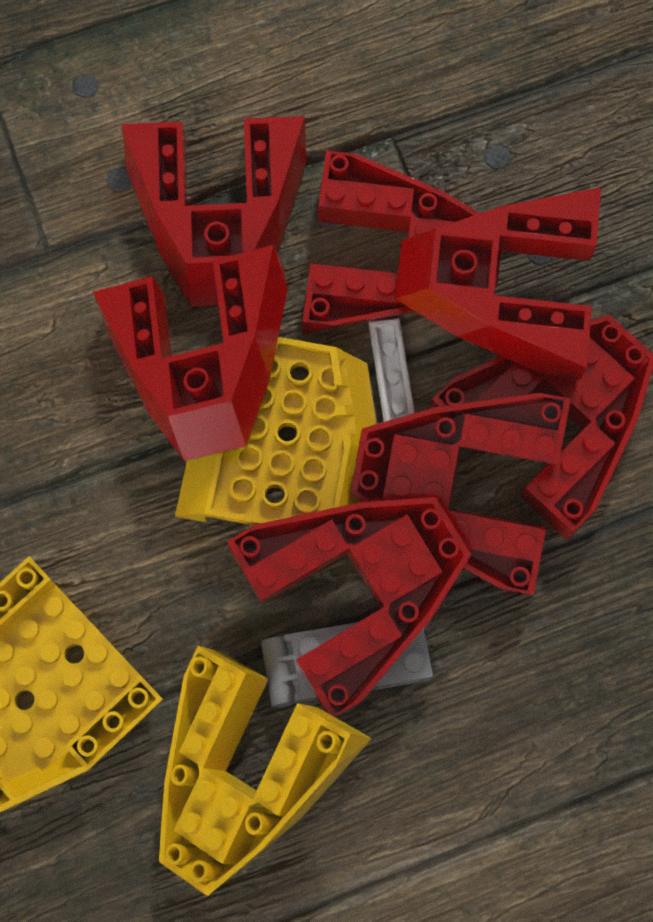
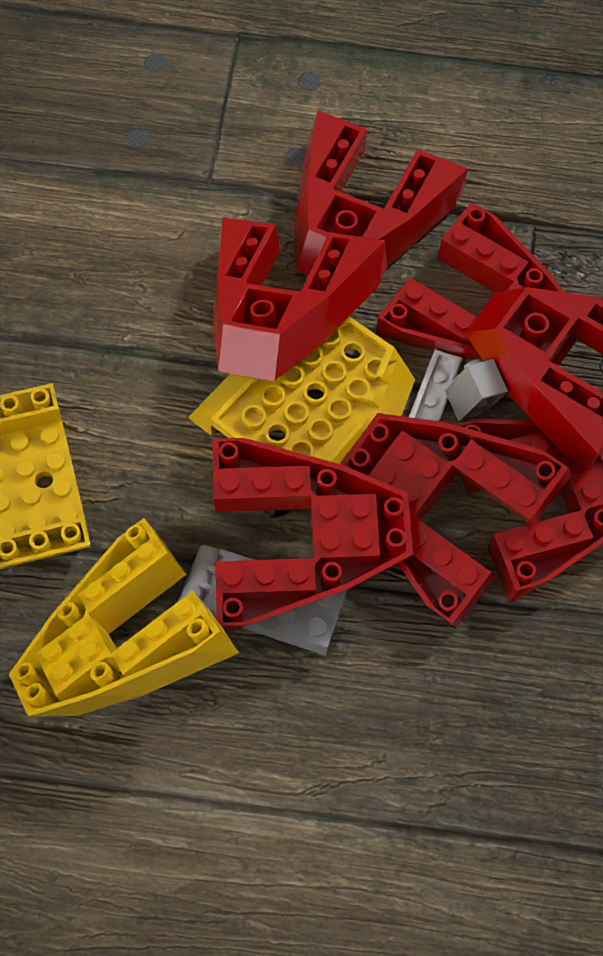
camera: 25 degrees right, 10 degrees down
(433, 349) = (476, 389): none -> light grey brick

